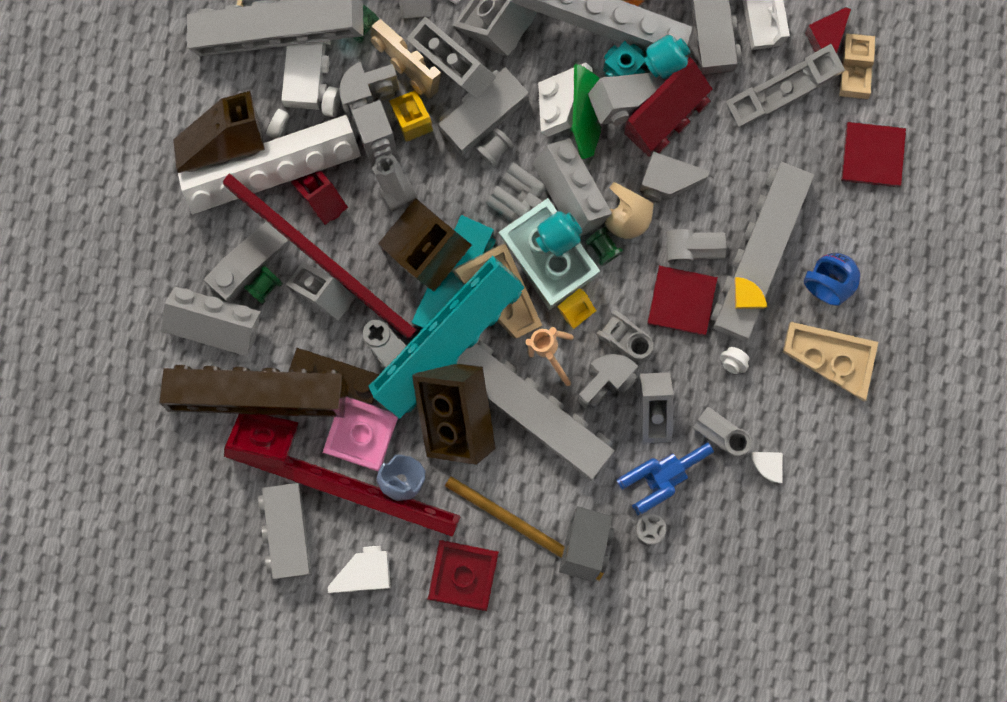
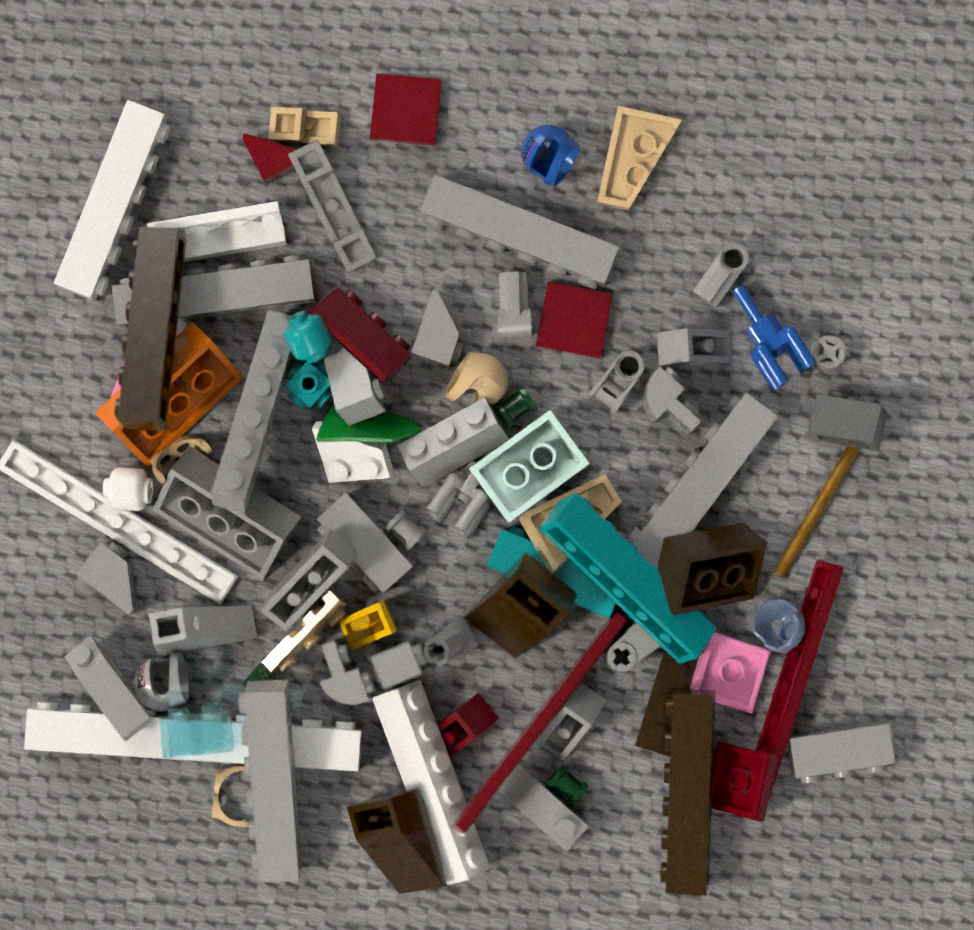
camera: 90 degrees left, 5 degrees up
(210, 321) = (610, 842): light grey brick -> none
(277, 124) = (382, 775): white tile -> none
(331, 101) = (355, 715): white tile -> none
(363, 572) = (884, 664): white slope -> none
(463, 575) = (881, 556): dark red tile -> none
(545, 345) = (634, 468): light nougat plant -> none
(558, 233) = (512, 455): teal head -> none
(576, 308) = (586, 436): yellow plate -> none
(735, 360) = (640, 262): white plate -> none
(748, 295) = (573, 247): yellow tile -> none
(768, 465) = (753, 225): white tile -> none

